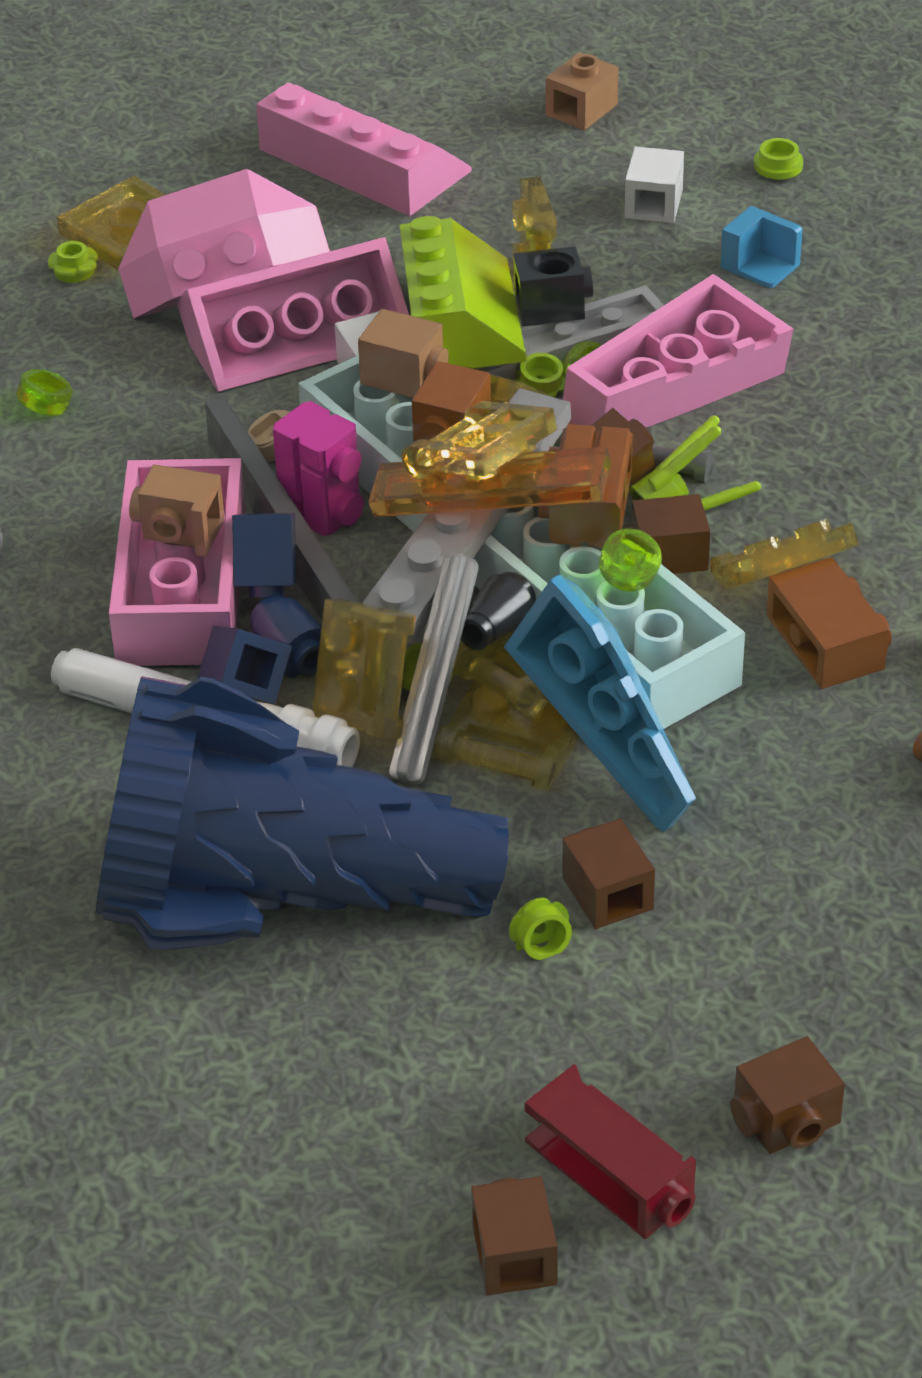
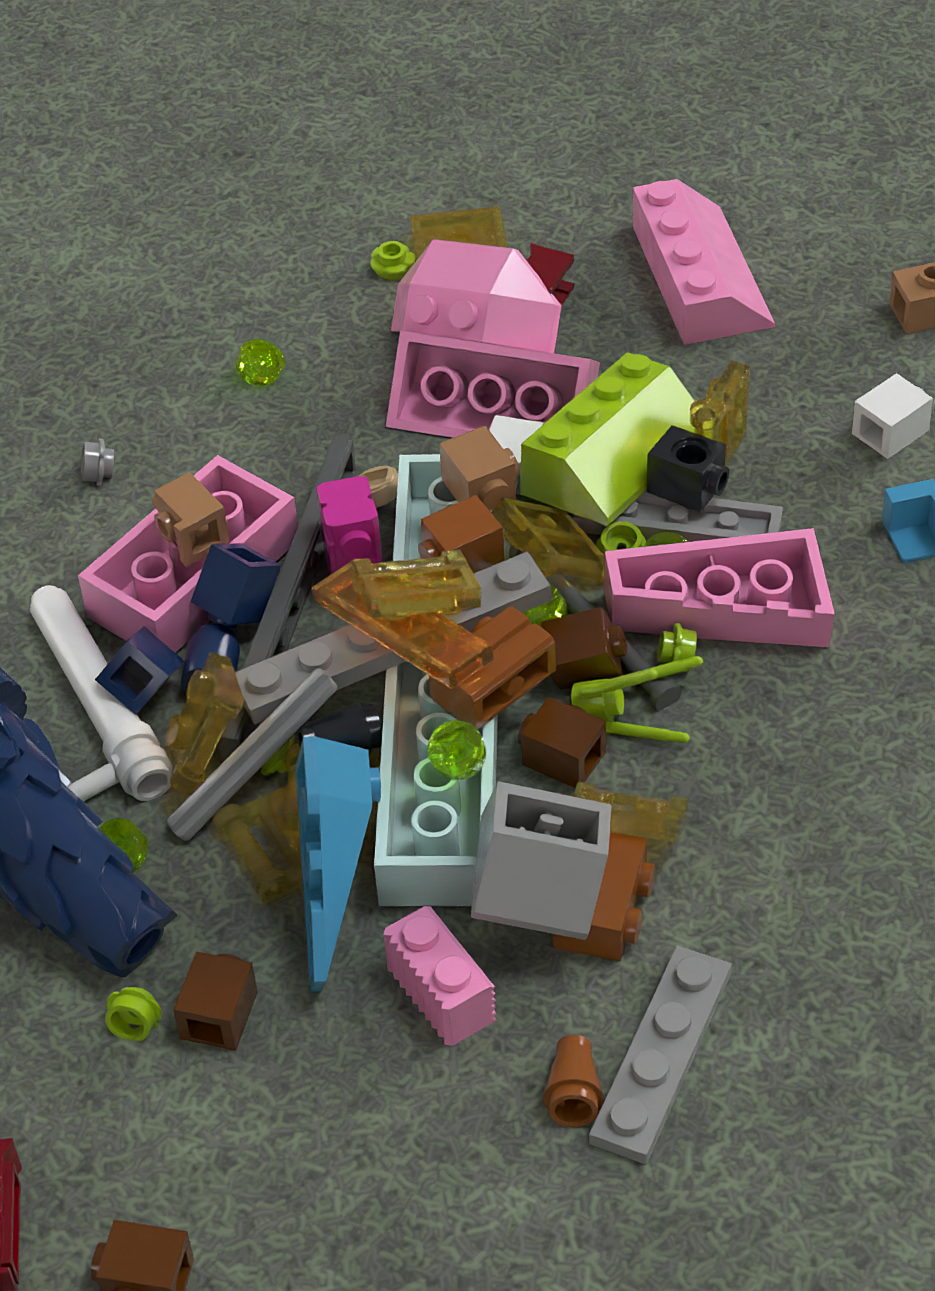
camera: 40 degrees right, 5 degrees up
(676, 423) = (676, 645): none -> lime plate
(773, 747) = (439, 975): none -> bright pink brick
(795, 595) = (540, 860): none -> light grey slope

